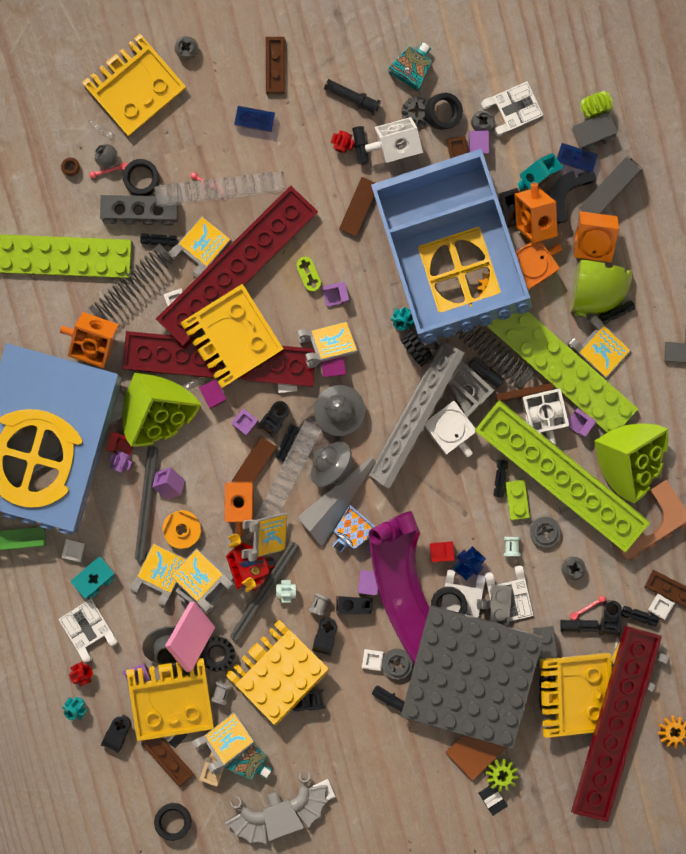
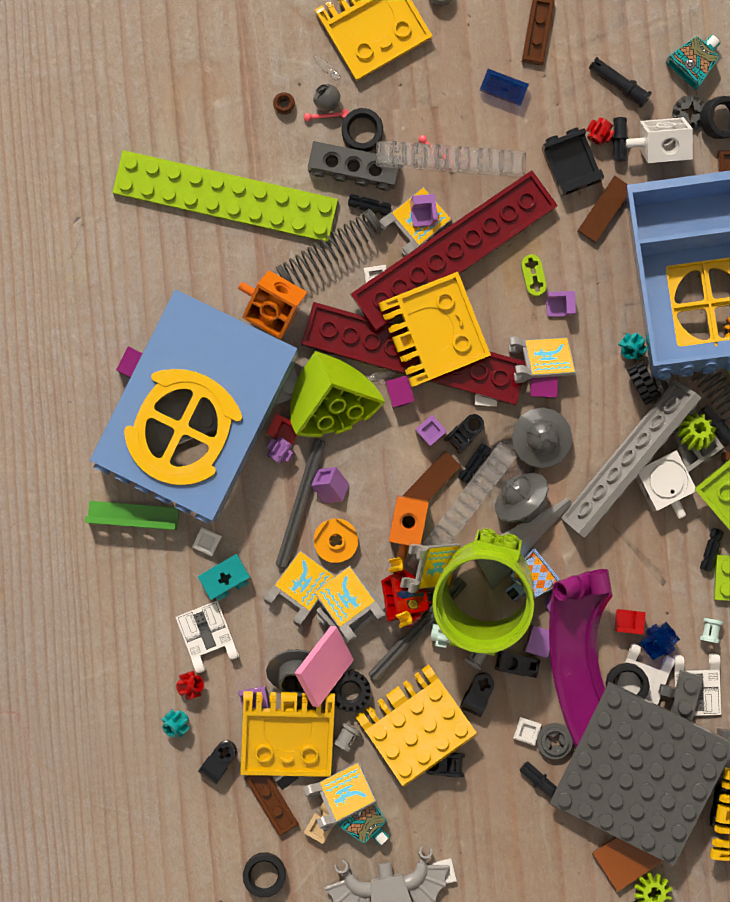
camera: 10 degrees right, 0 degrees up
(205, 236) = (423, 210): none -> medium lavender panel
(300, 583) = (476, 634): none -> lime cylinder
(323, 171) = (571, 162): none -> black panel
(475, 382) = (696, 432): none -> lime gear

